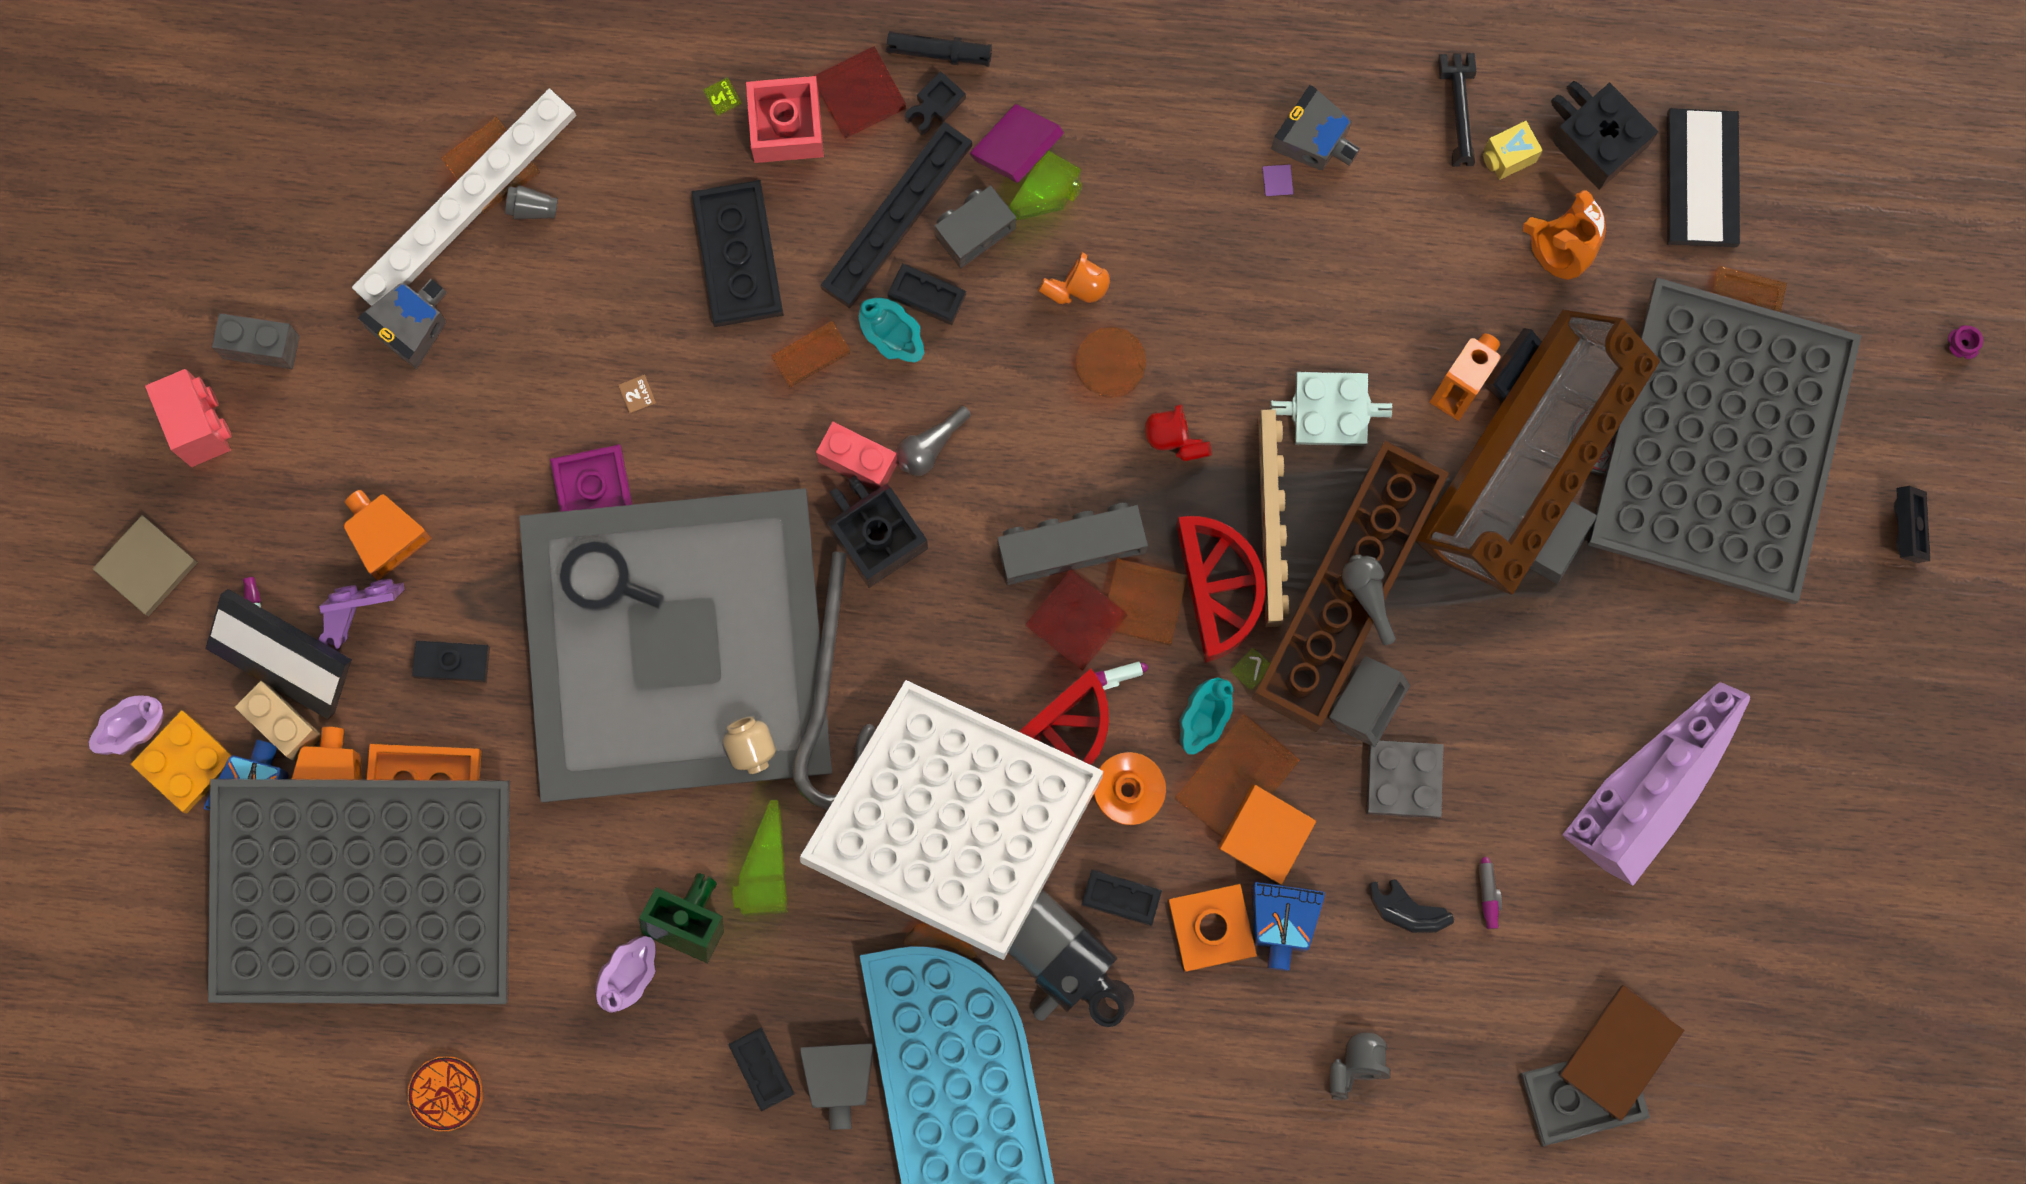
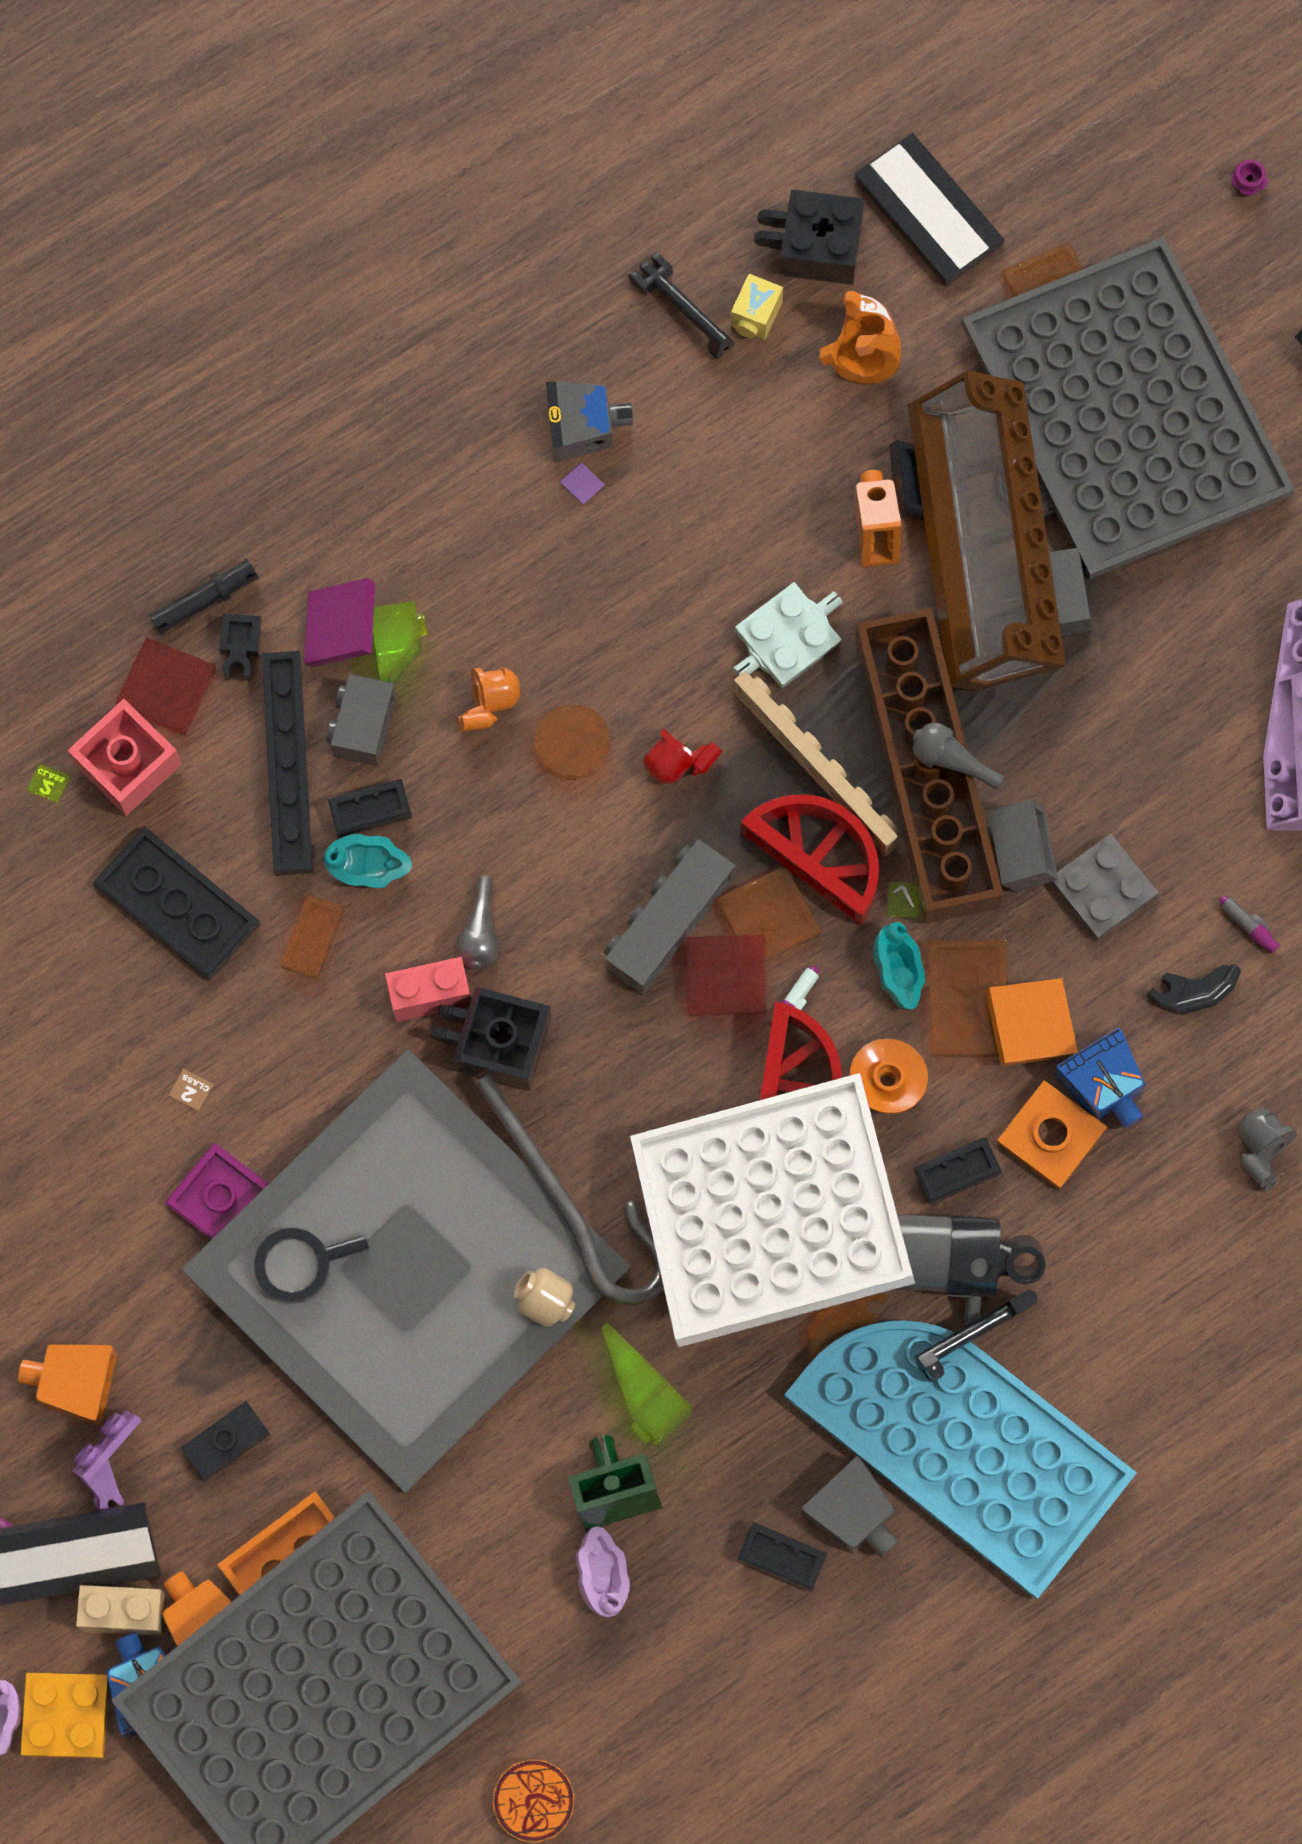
camera: 35 degrees left, 5 degrees down
(982, 1016) = (928, 1359): none -> black hinge

